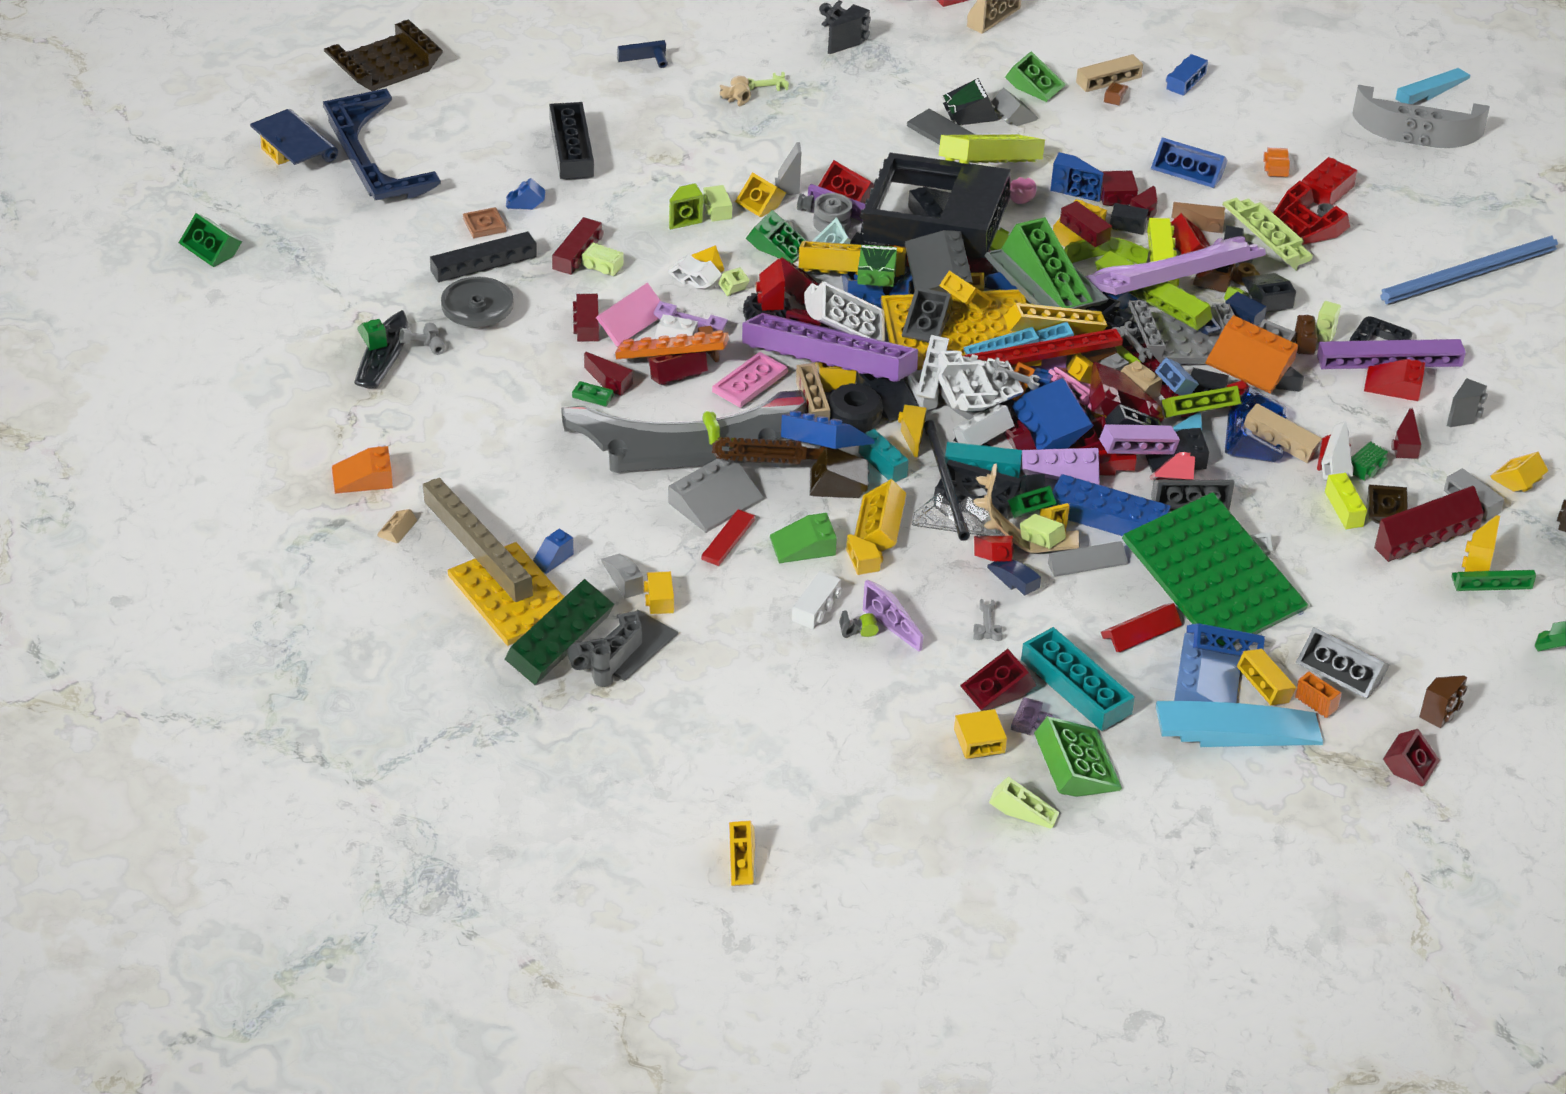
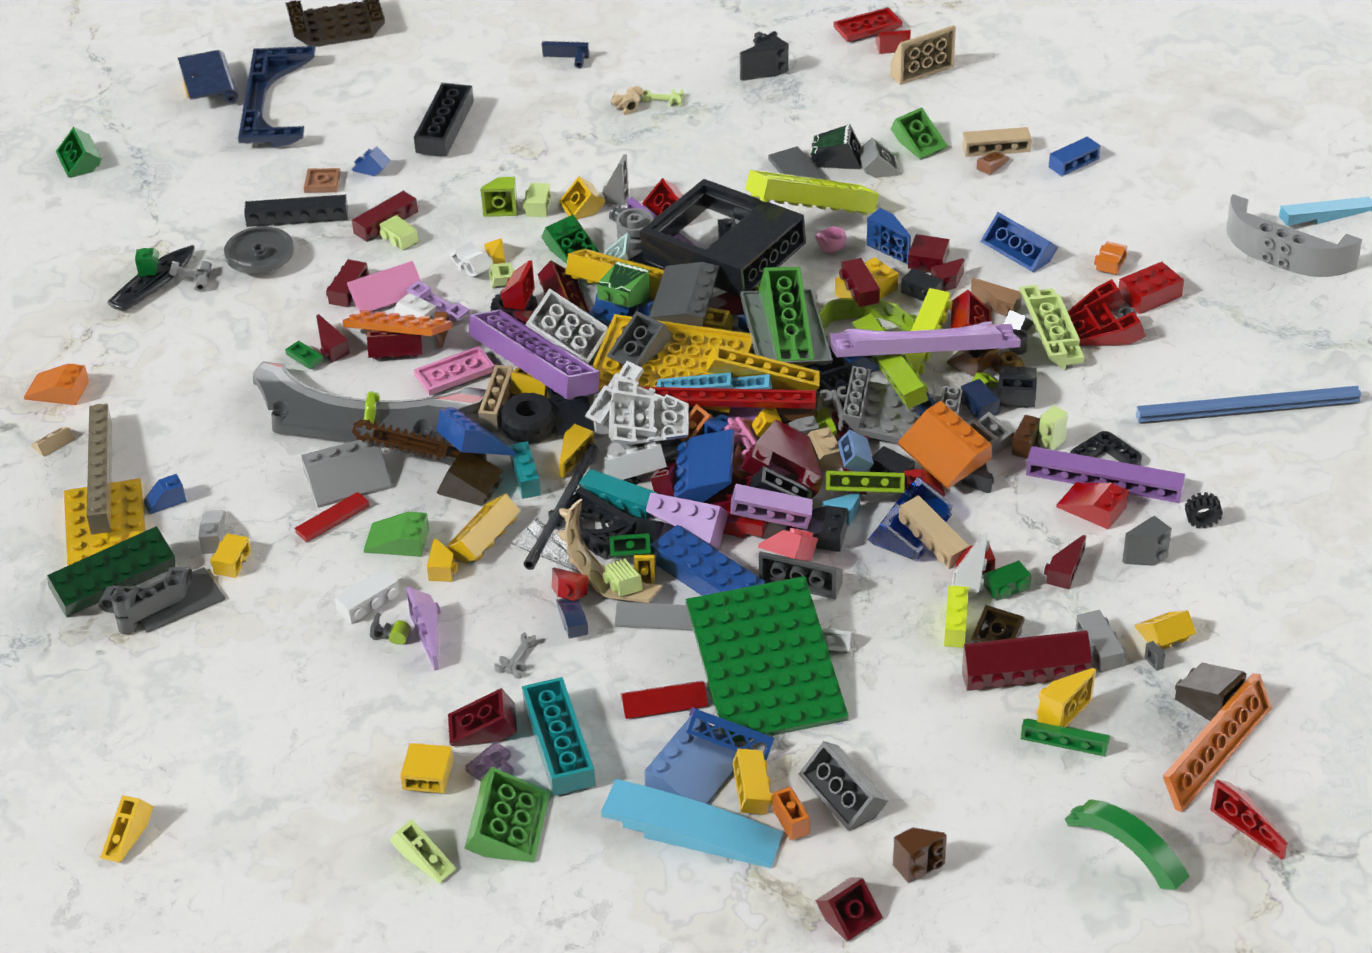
camera: 25 degrees right, 0 degrees up
(966, 292) = (678, 319): yellow panel -> none
(1002, 372) = (674, 410): light grey bar -> none
(1493, 366) = (1203, 502): none -> black tyre
(1525, 497) = (1154, 655): none -> dark grey plate

